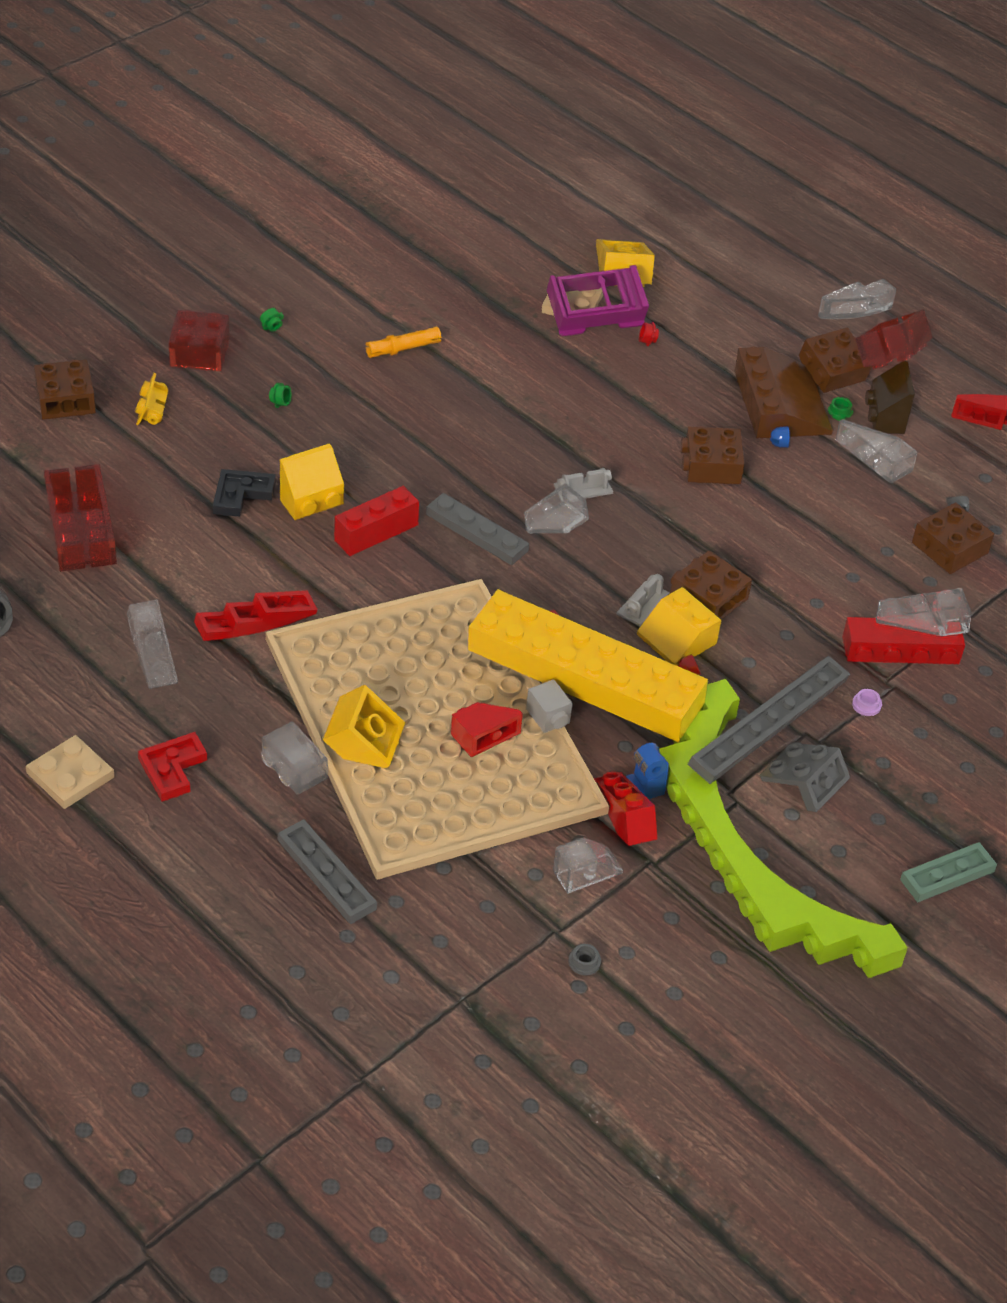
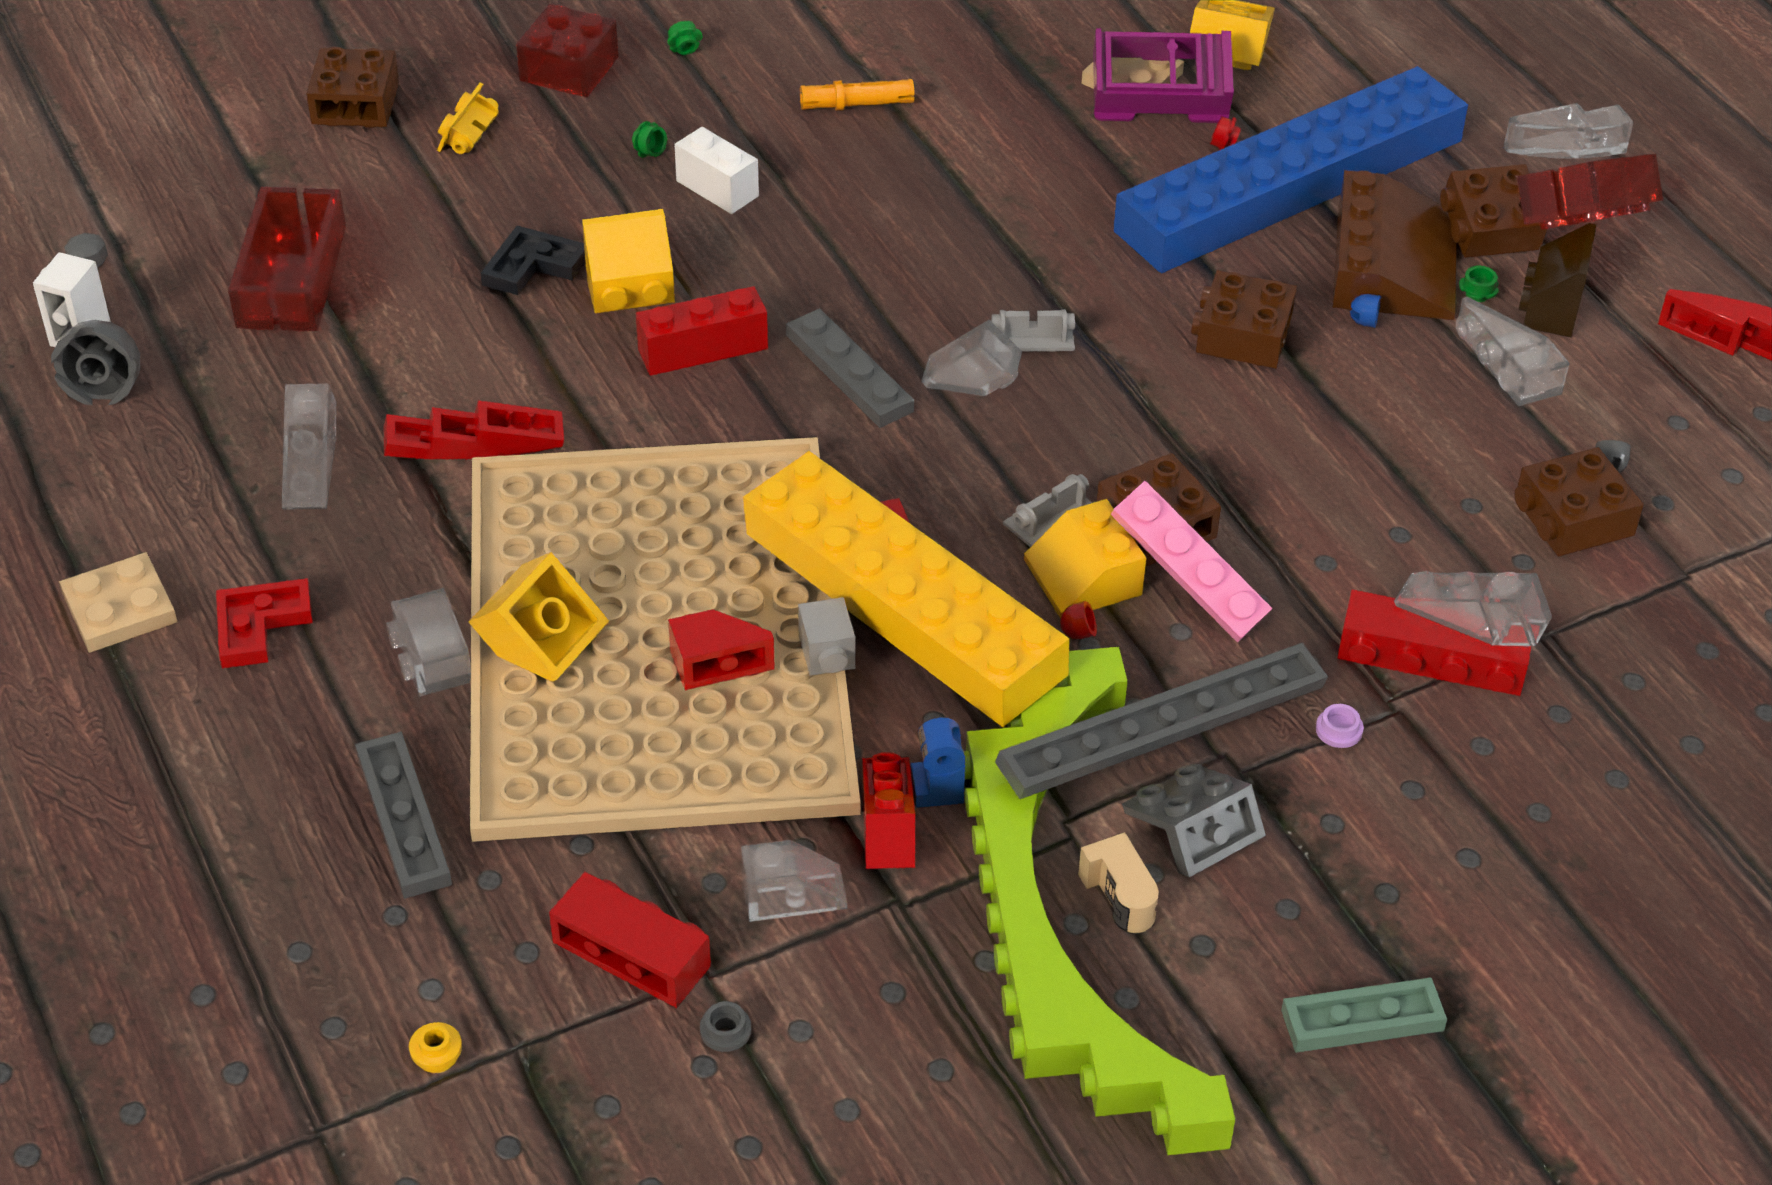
camera: 20 degrees right, 0 degrees up
(337, 409) = (716, 170): none -> white brick
(414, 1018) = (436, 1058): none -> yellow plate
(505, 918) = (630, 938): none -> red brick
(698, 352) = (1287, 168): none -> blue brick
(747, 617) = (1191, 561): none -> bright pink plate
(781, 822) = (1123, 879): none -> tan leg

